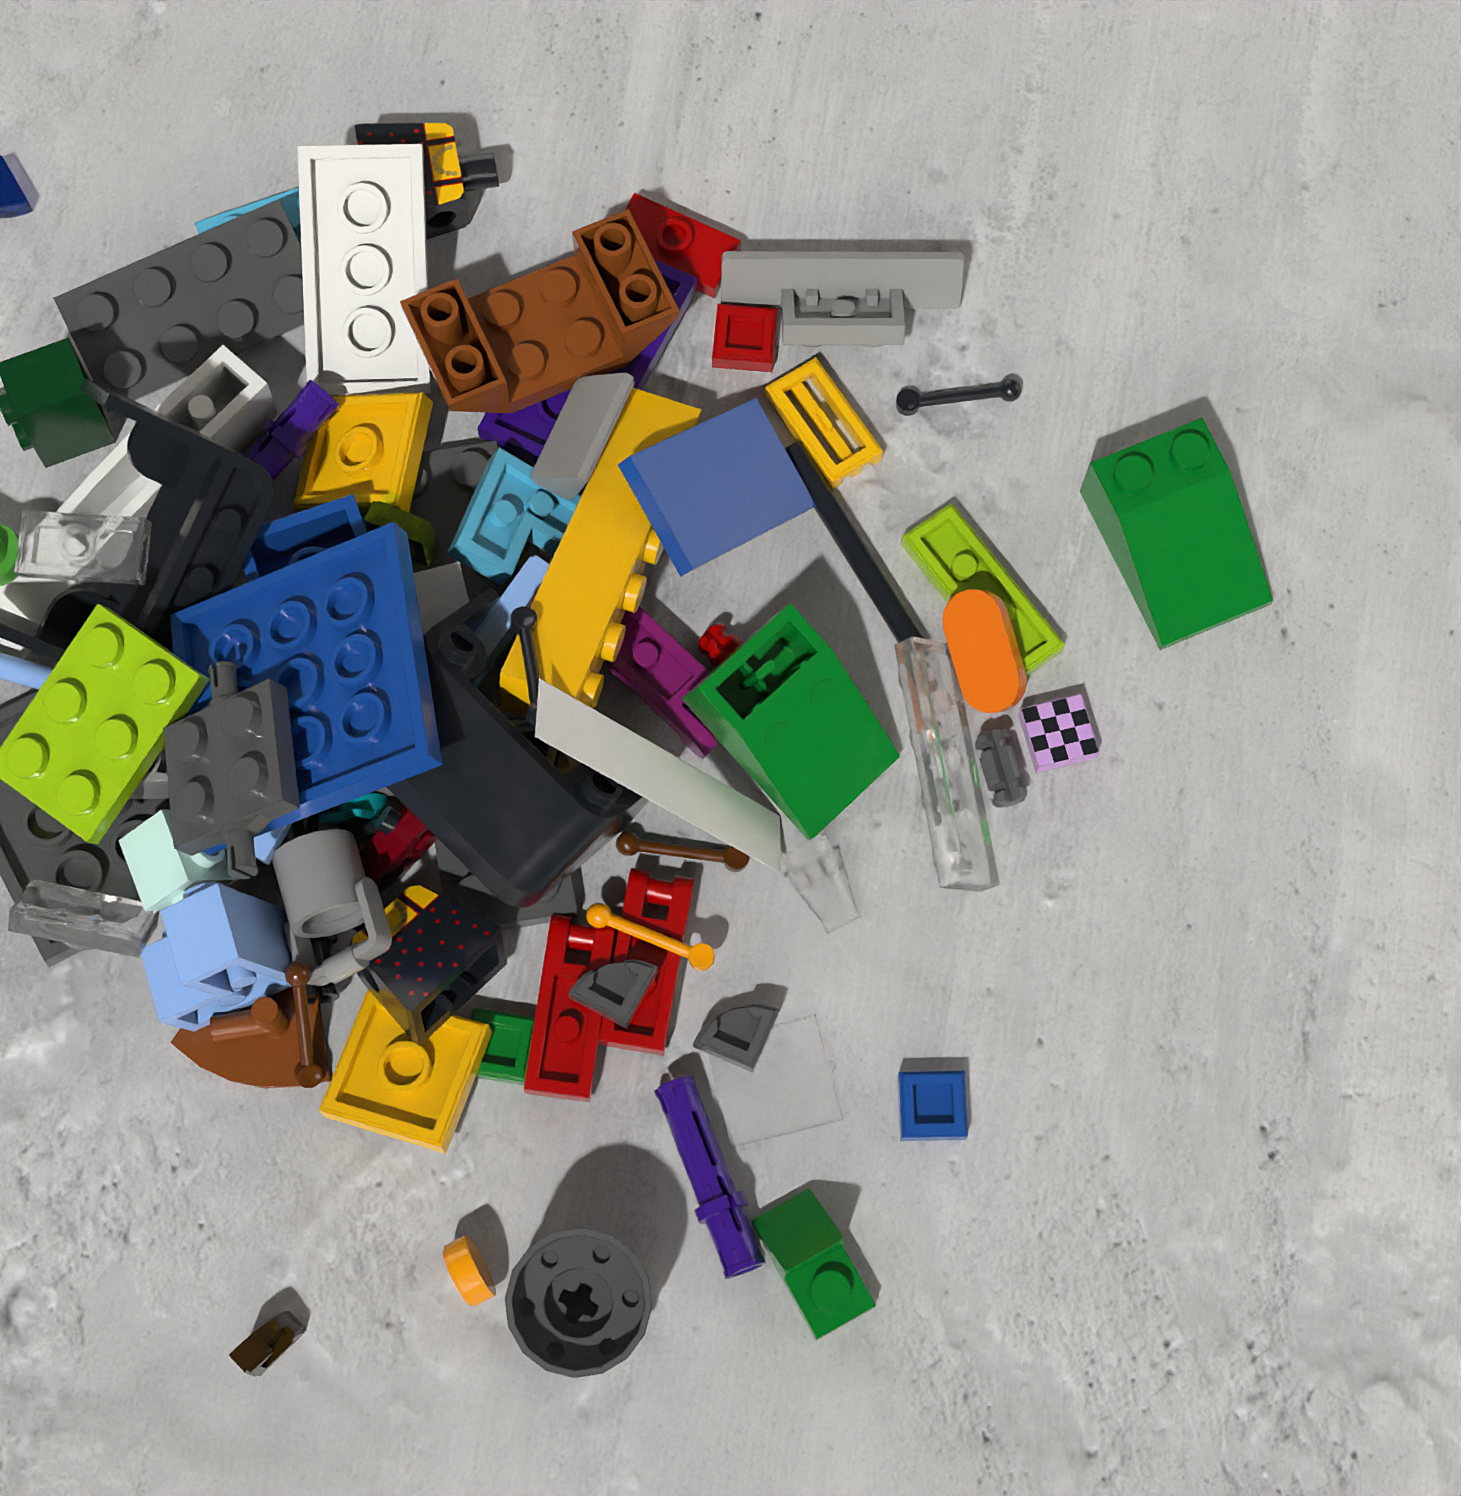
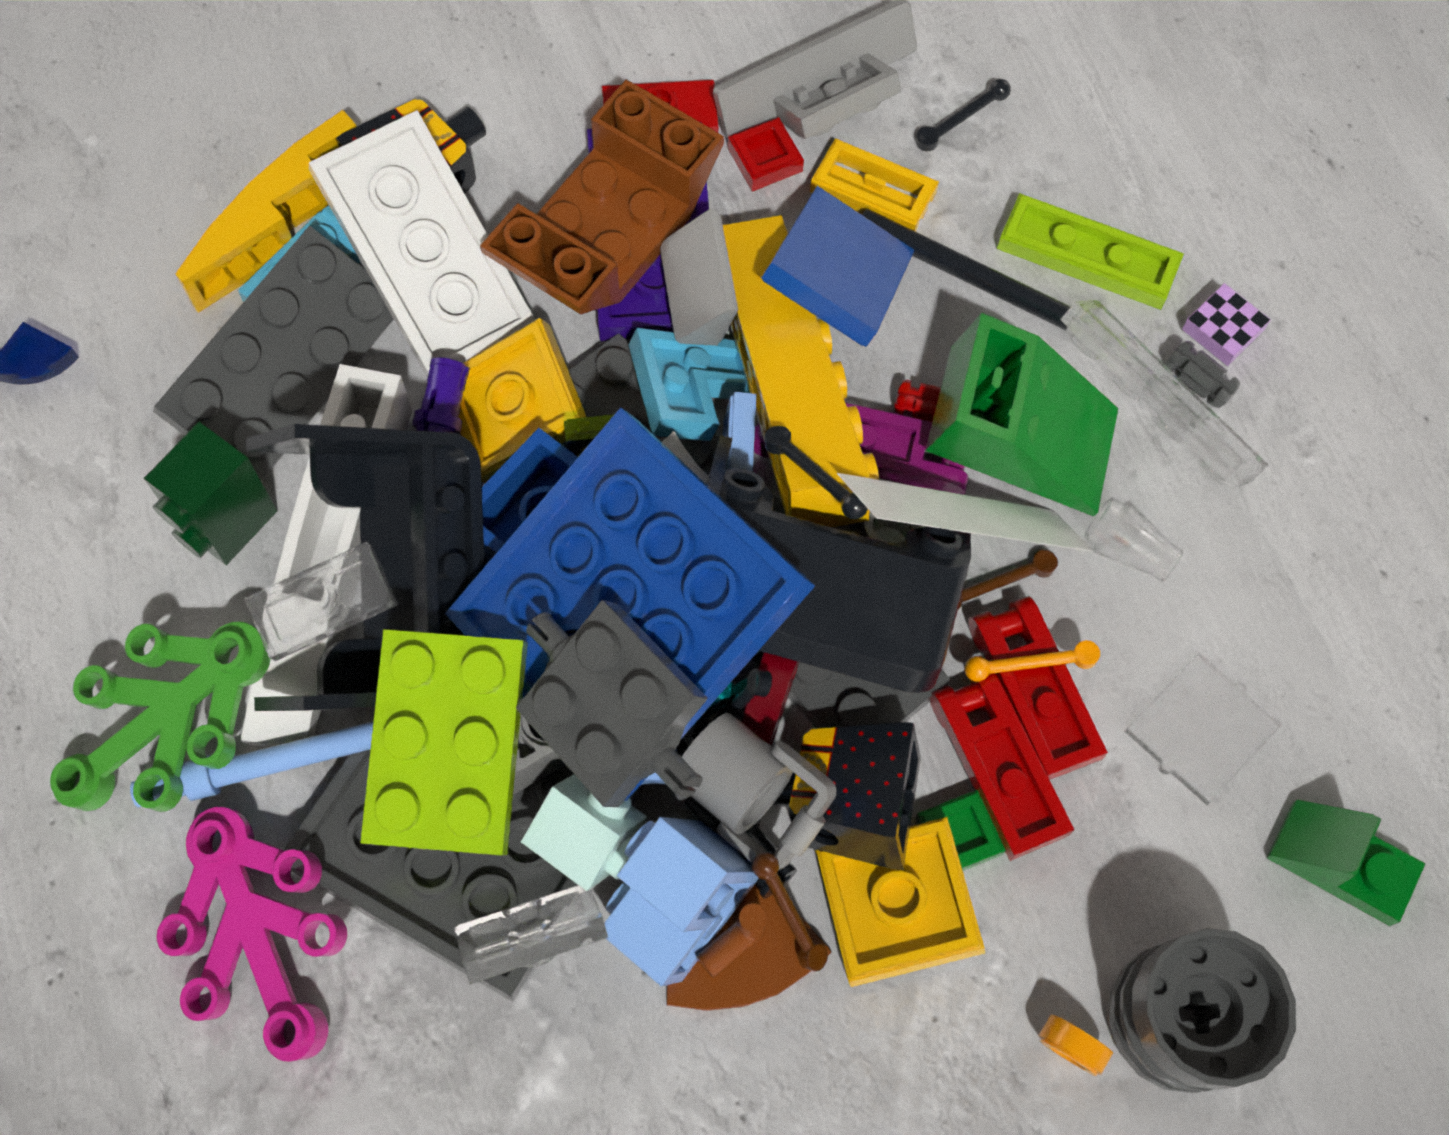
camera: 30 degrees left, 5 degrees down
(250, 164) = (259, 218): none -> yellow slope
(615, 989) = (1036, 723): dark grey tile -> none
(719, 1202) = (1227, 846): dark purple pin -> none
(738, 1035) = (1155, 704): dark grey tile -> none
(932, 1105) = (1343, 672): blue tile -> none
(984, 650) = (1130, 288): orange tile -> none
(1177, 532) = (1206, 124): green slope -> none

